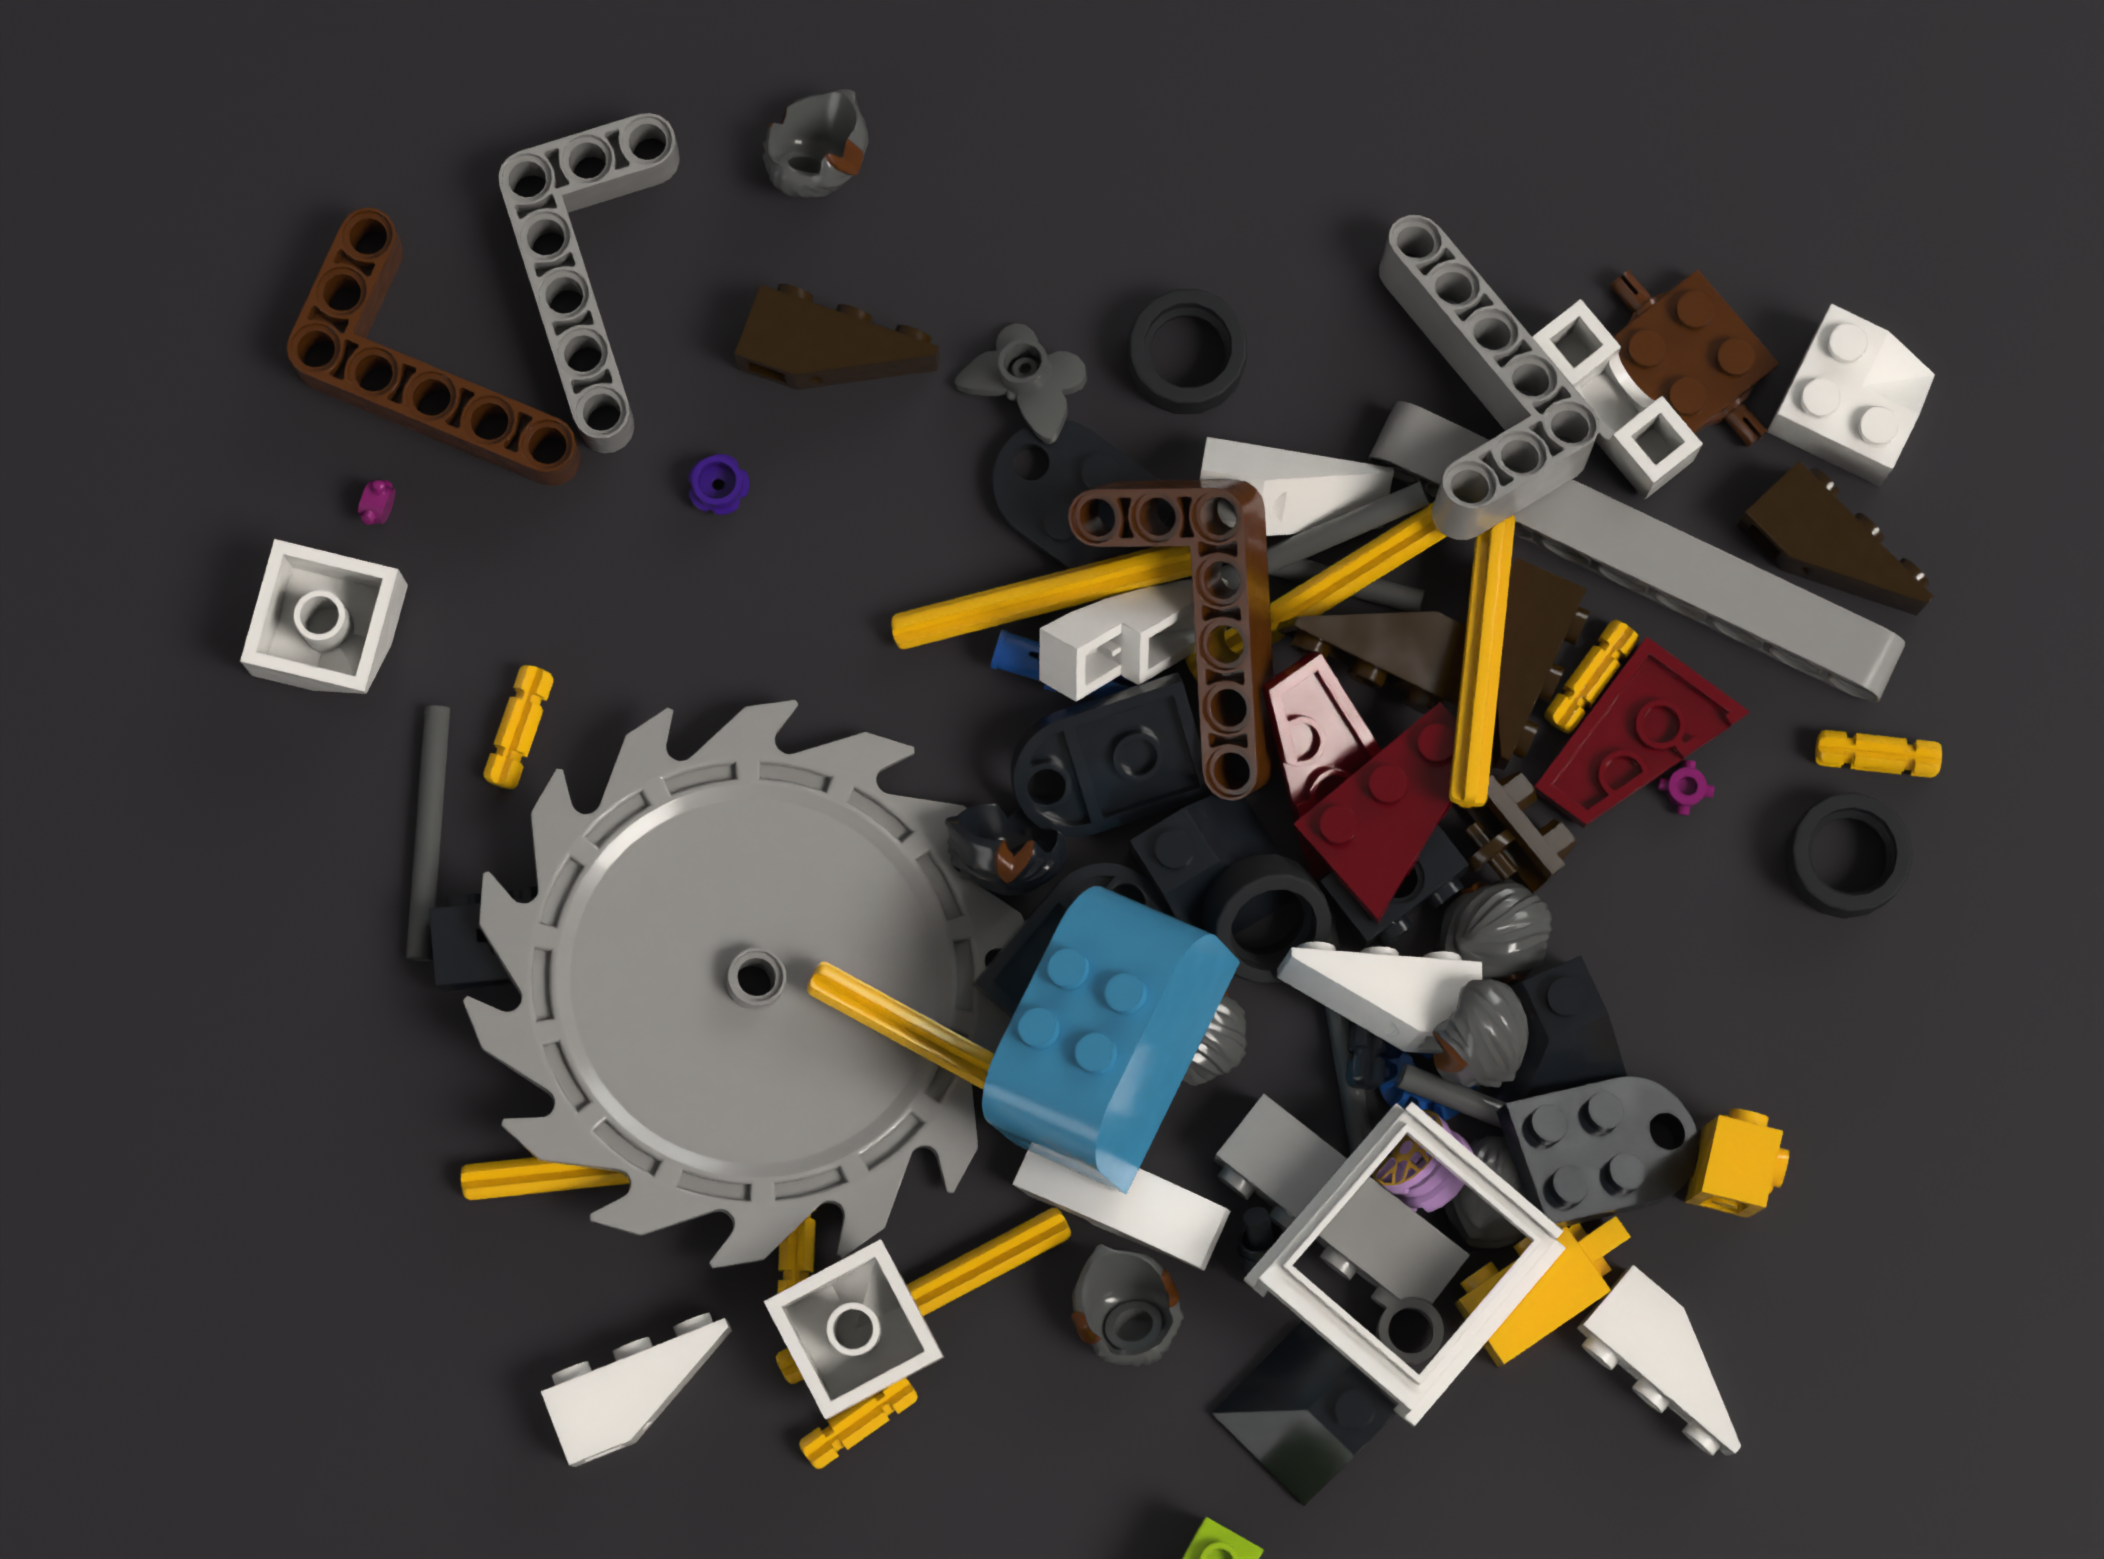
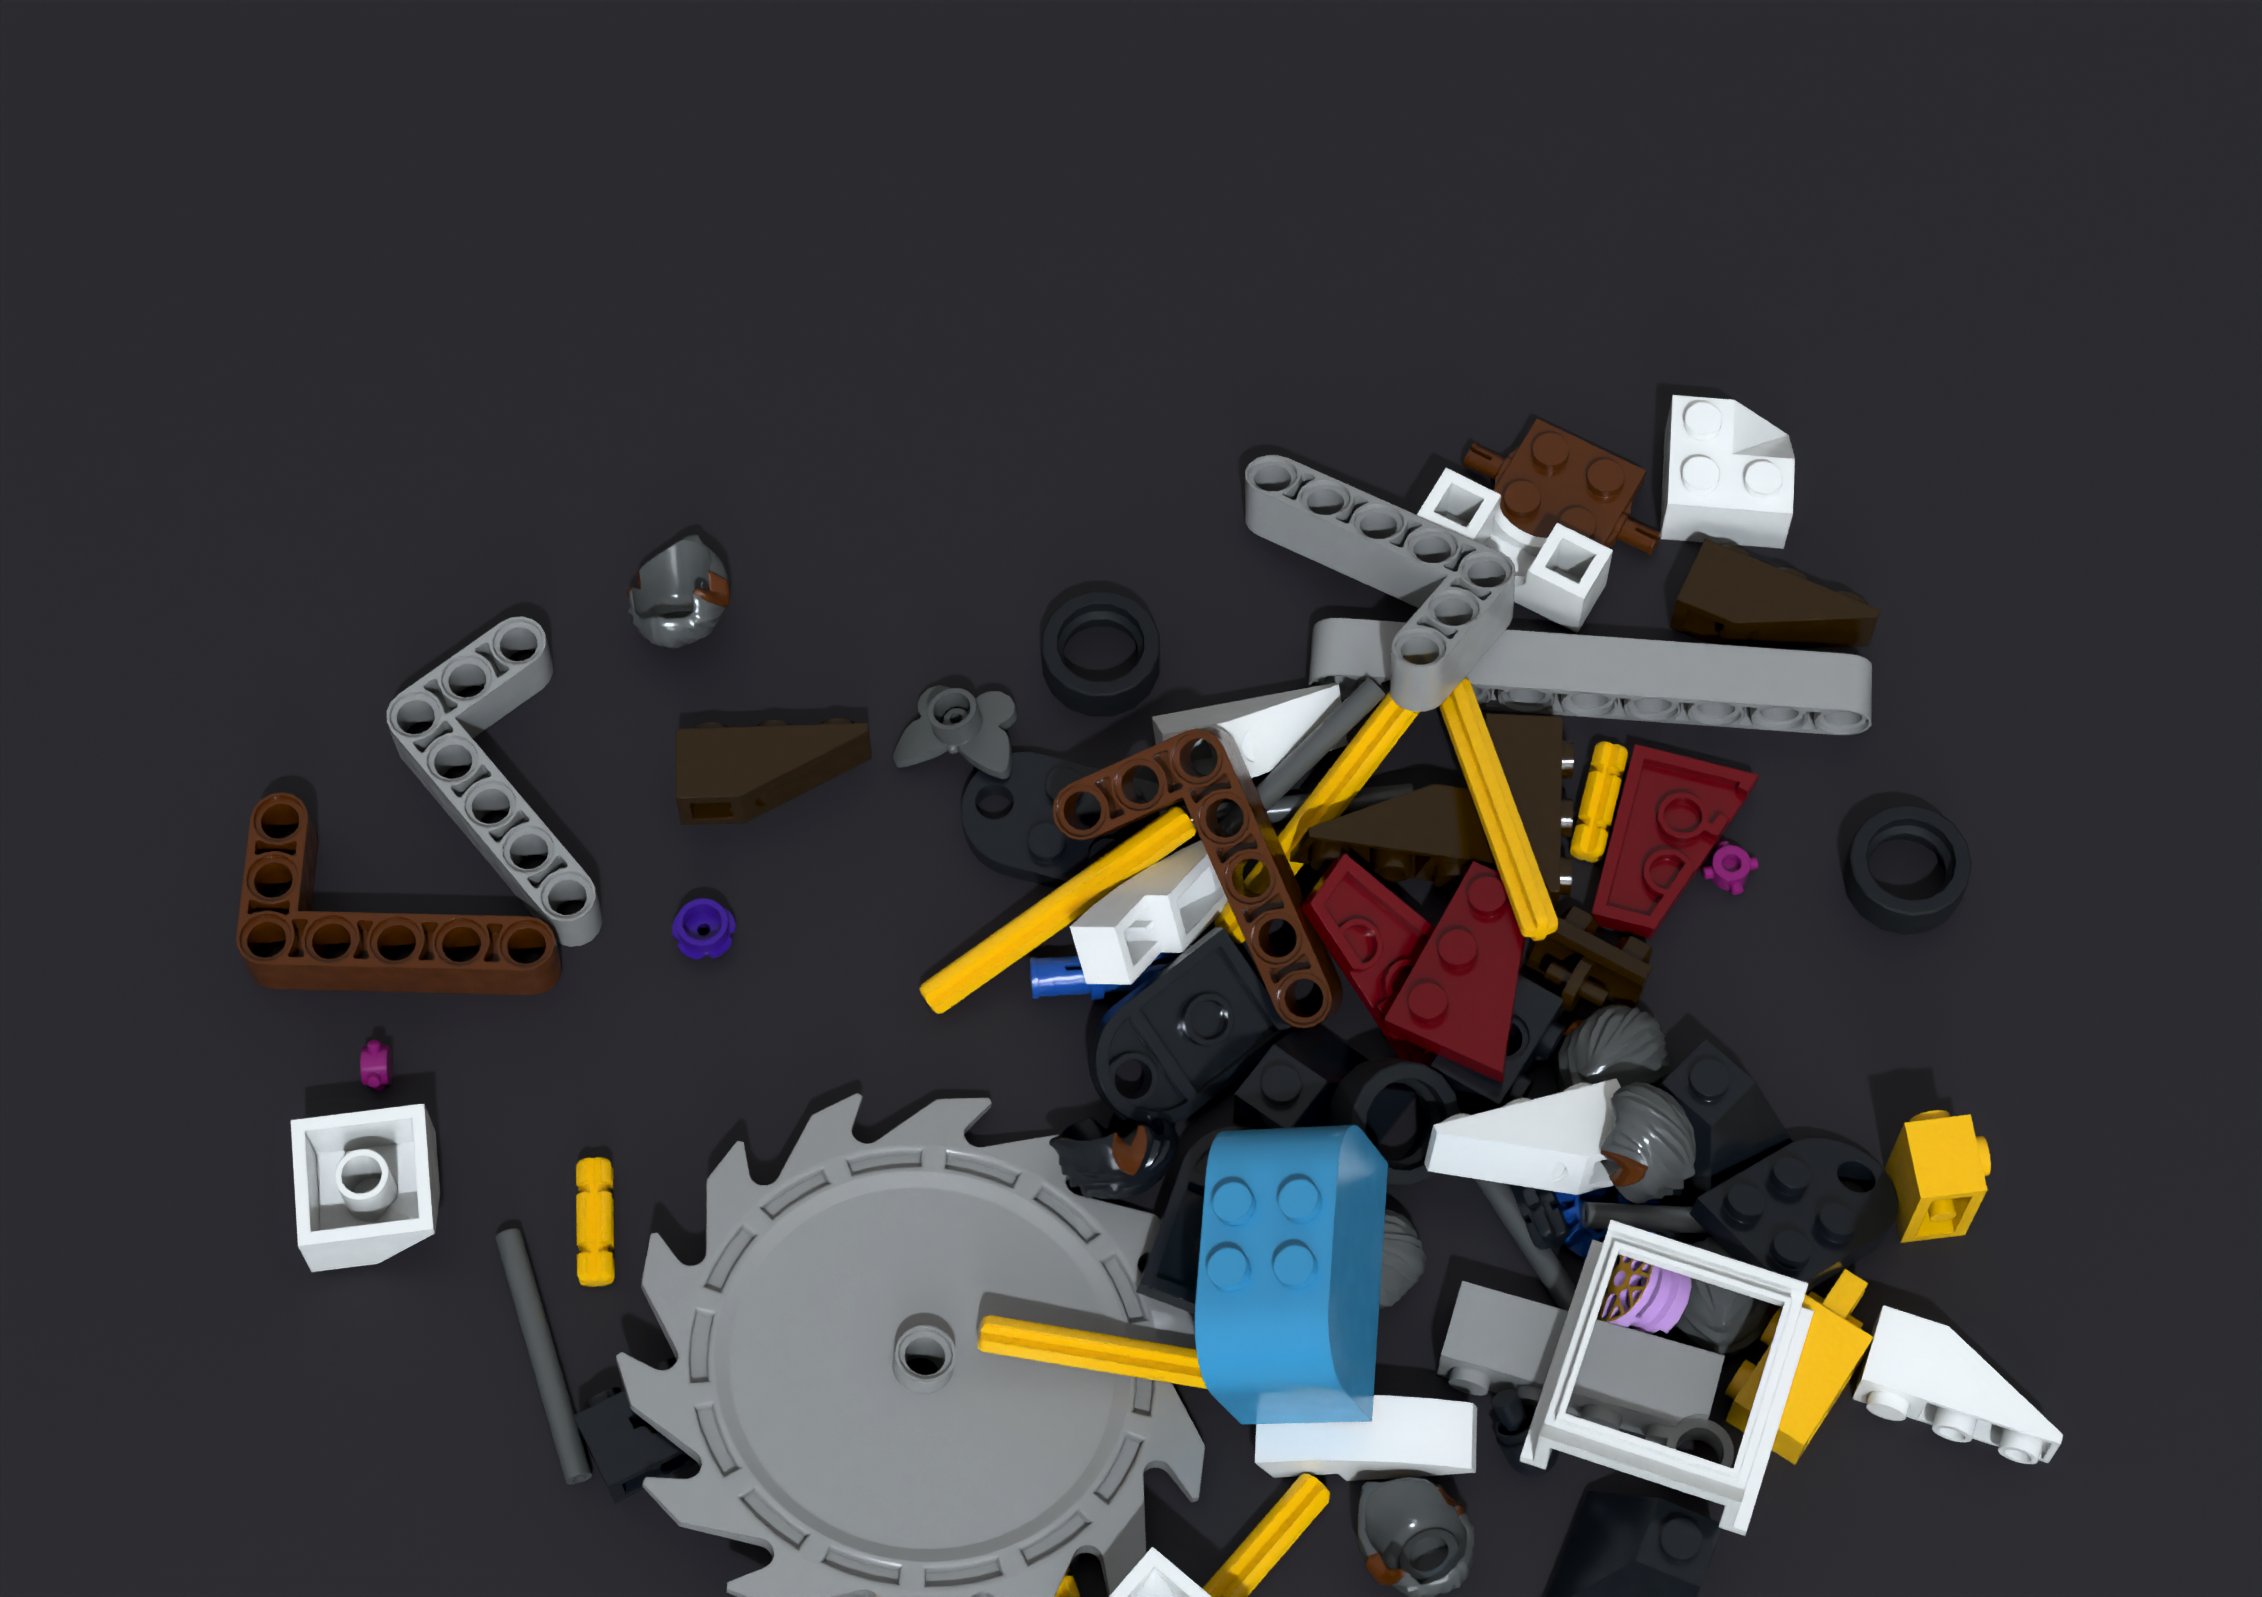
camera: 20 degrees left, 15 degrees down
(1878, 753) = (1891, 772): yellow axle -> none

